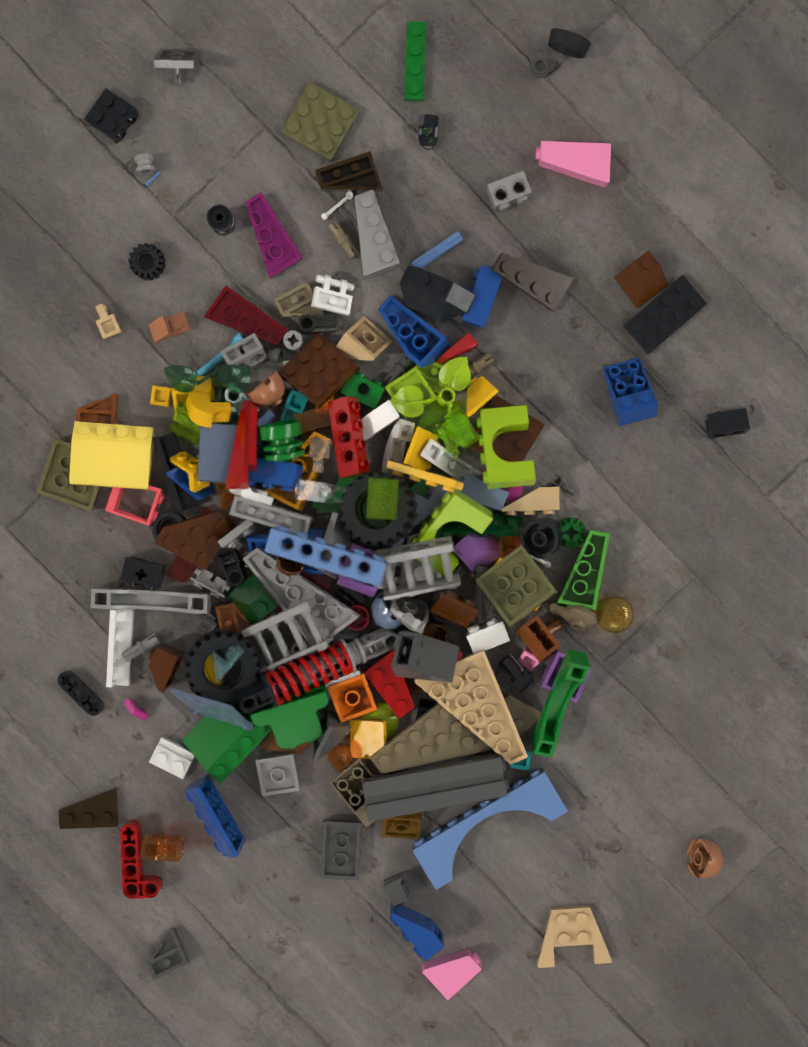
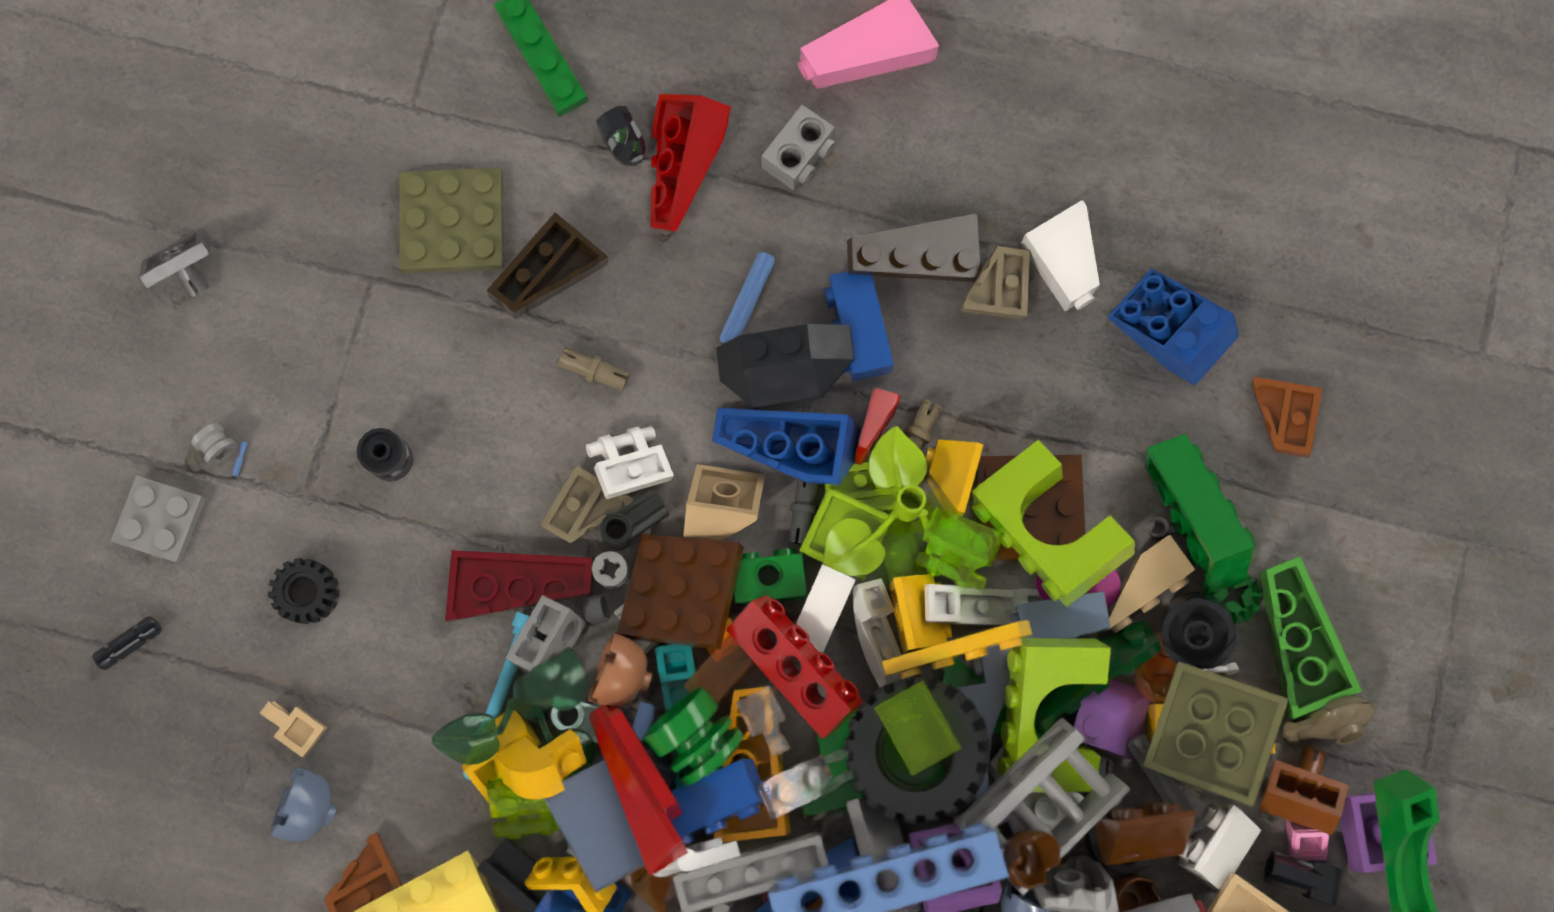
camera: 30 degrees left, 10 degrees down
(52, 235) = (126, 643): none -> black axle
(90, 361) = (303, 807): none -> sand blue cylinder
(98, 184) = (158, 519): none -> light grey plate
(112, 116) = (121, 404): black plate -> none
(161, 396) = (450, 791): yellow tile -> none
(169, 327) = (399, 672): nougat slope -> none
(275, 244) = (485, 436): magenta wing -> none
(349, 195) = (562, 301): white hinge -> none
(375, 242) = (642, 339): light grey wedge -> none
(396, 586) = (1030, 856): none -> reddish brown hair
(457, 154) = (688, 138): none -> red wedge
(561, 320) = (1001, 285): none -> dark tan wing
(580, 485) = (1201, 512): none -> green wedge
(600, 326) = (1065, 256): none -> white slope
(614, 614) = (1391, 679): clear yellow cylinder -> none
(642, 279) = (1078, 152): reddish brown slope -> none
(654, 467) = (1288, 414): none -> dark orange wing
(665, 314) = (1146, 184): black plate -> none
(727, 423) = (1350, 281): black hinge -> none

